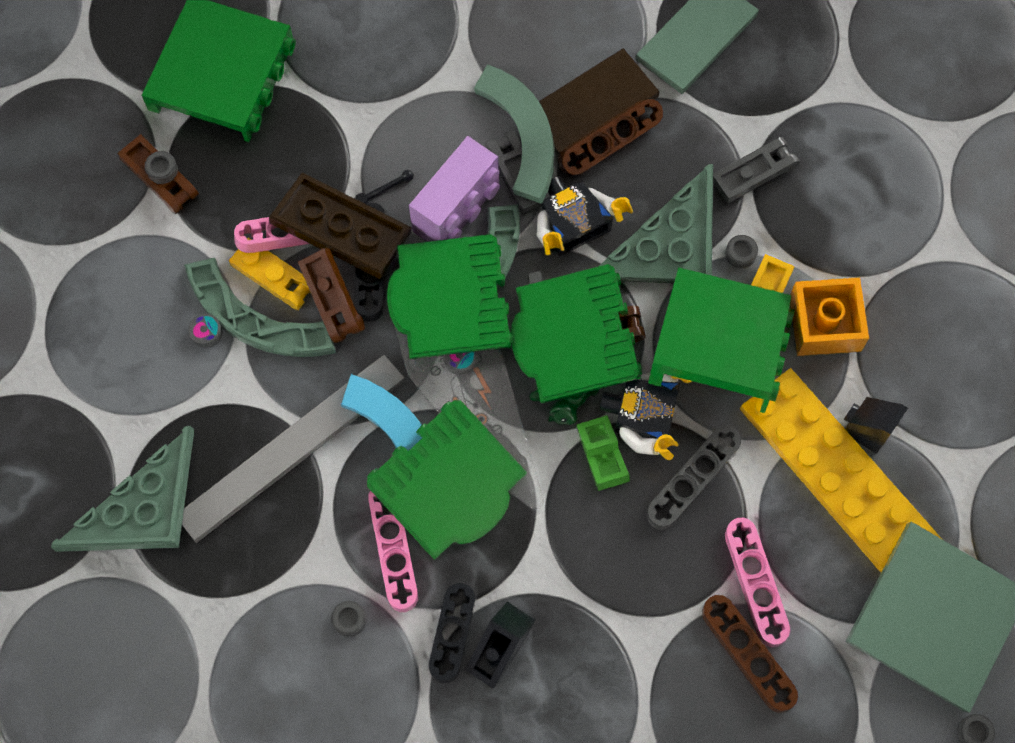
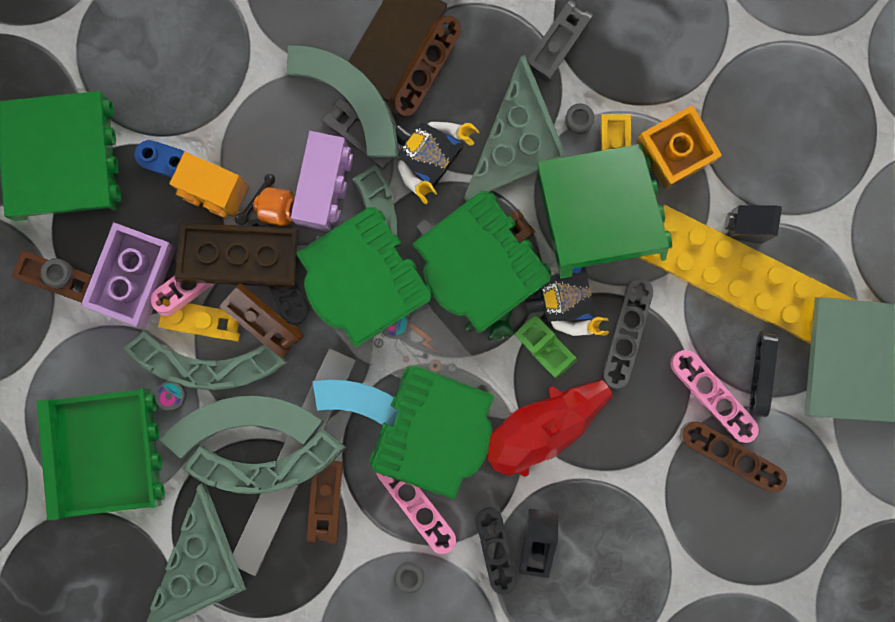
camera: 25 degrees left, 15 degrees up
(108, 353) = (100, 453): none -> green panel
(224, 195) = (128, 274): none -> lavender brick
(261, 375) = (236, 413): none -> sand green tile
(261, 447) = (267, 476): none -> sand green tile
(303, 499) = (325, 503): none -> reddish brown plate
(314, 113) = (162, 157): none -> blue plate
(347, 150) = (209, 184): none -> light orange brick
(395, 199) = (274, 206): none -> orange head
(564, 532) = (545, 427): none -> red piece
(819, 581) = (763, 374): none -> black beam

